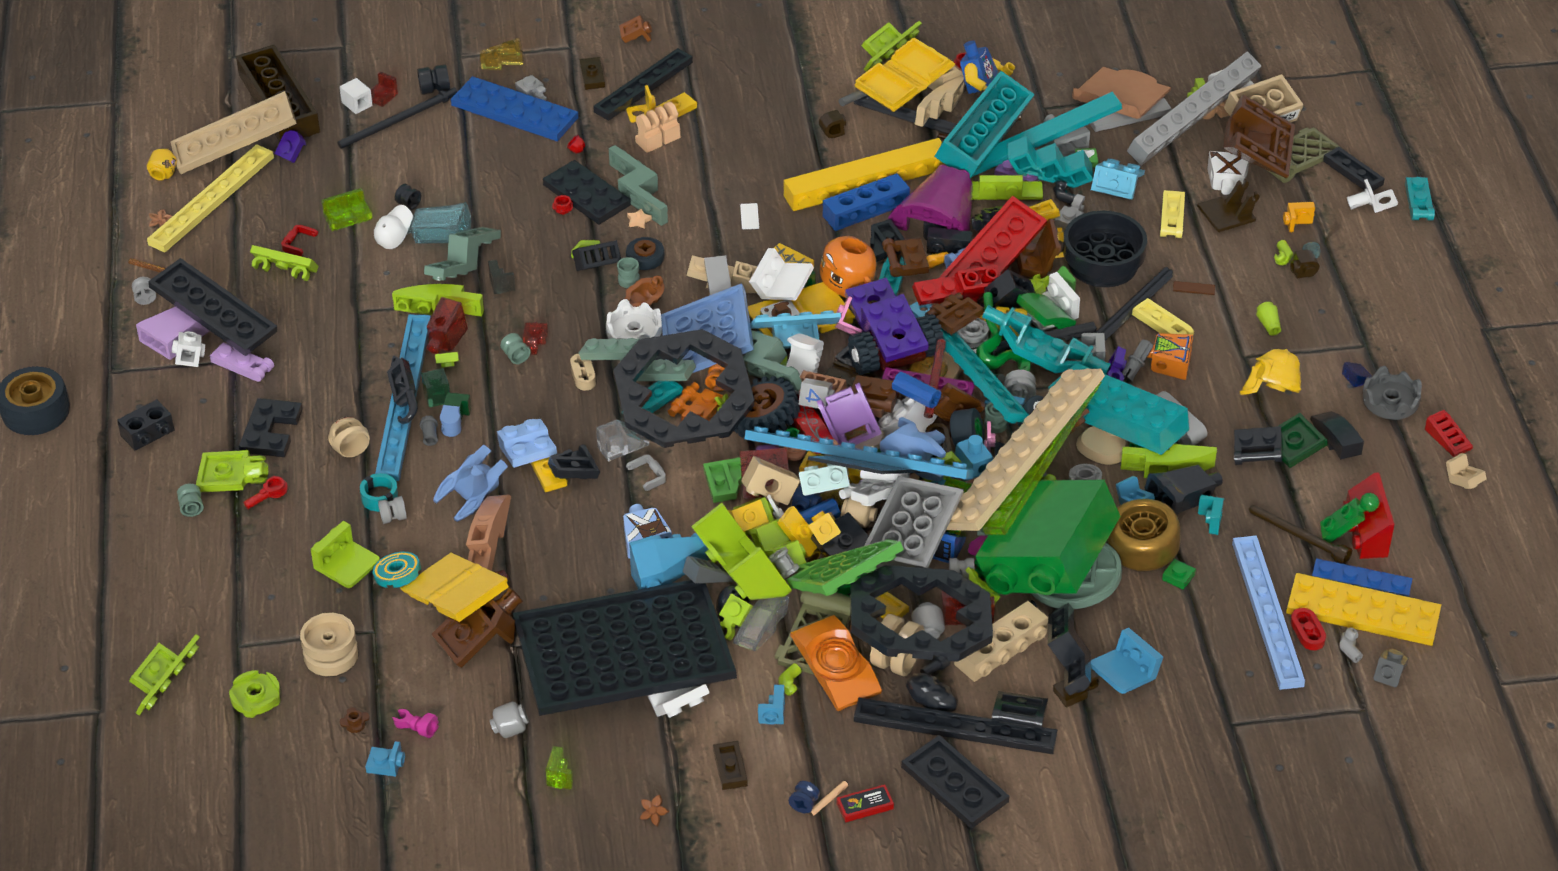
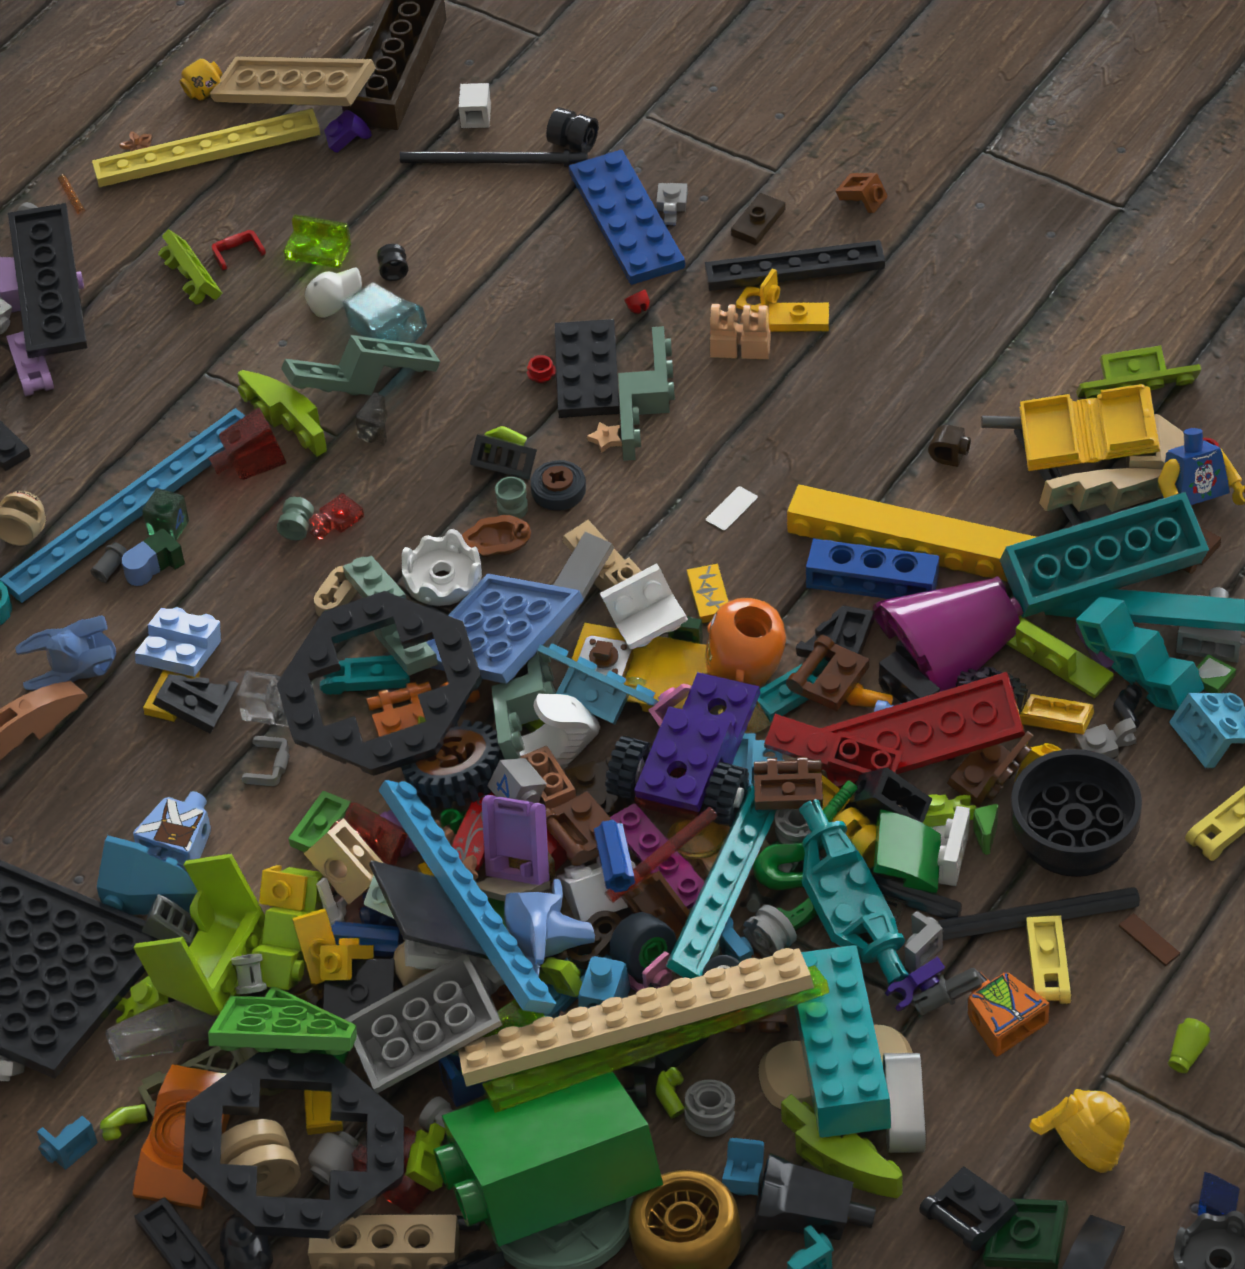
camera: 45 degrees right, 5 degrees up
(384, 90) = (513, 116): clear red bracket -> none
(403, 387) = (124, 493): black plate -> none
(447, 359) = (216, 486): lime plate -> none
(505, 53) = (674, 139): clear yellow slope -> none

